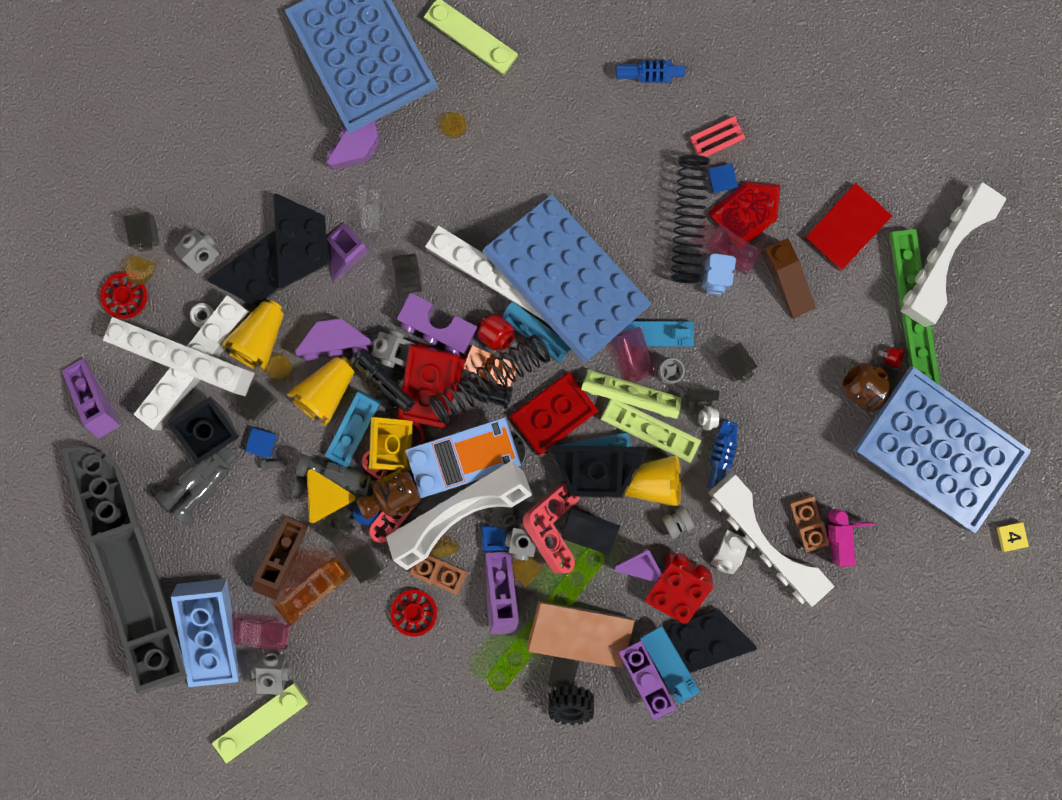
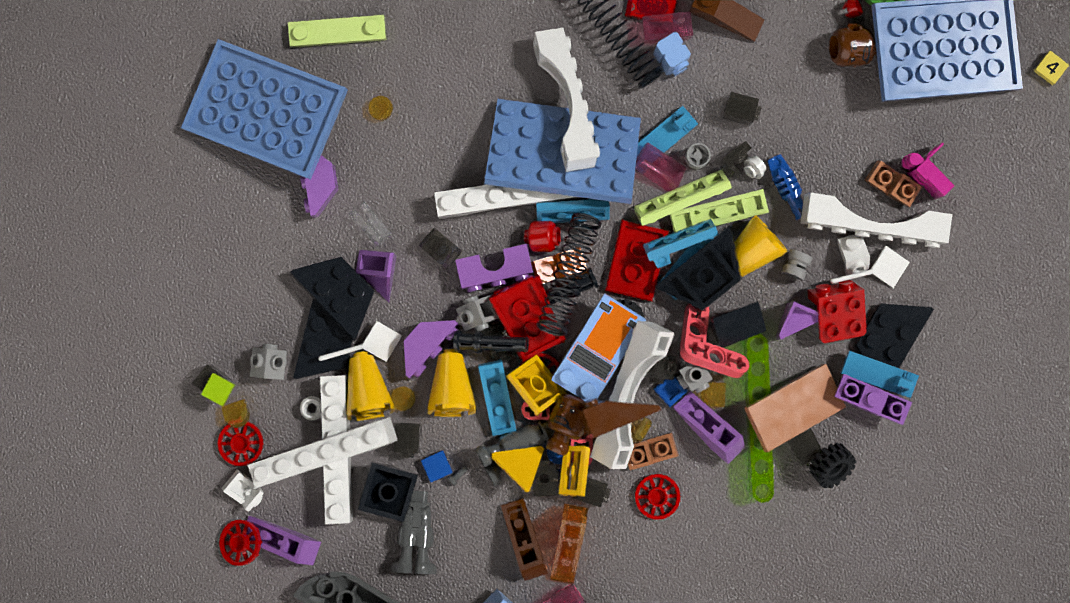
camera: 40 degrees left, 0 degrees up
(57, 373) = (240, 542): none -> red wheel
(92, 333) = (243, 490): none -> white bracket
(138, 238) = (218, 389): none -> lime tile
(299, 307) = (379, 342): none -> white piece
(366, 540) = (580, 488): none -> yellow tile
(425, 516) = (605, 416): none -> reddish brown slope
(579, 419) = (661, 248): none -> dark azure hinge
(623, 198) = (554, 56): none -> white arch
(747, 585) = (887, 268): none -> white piece

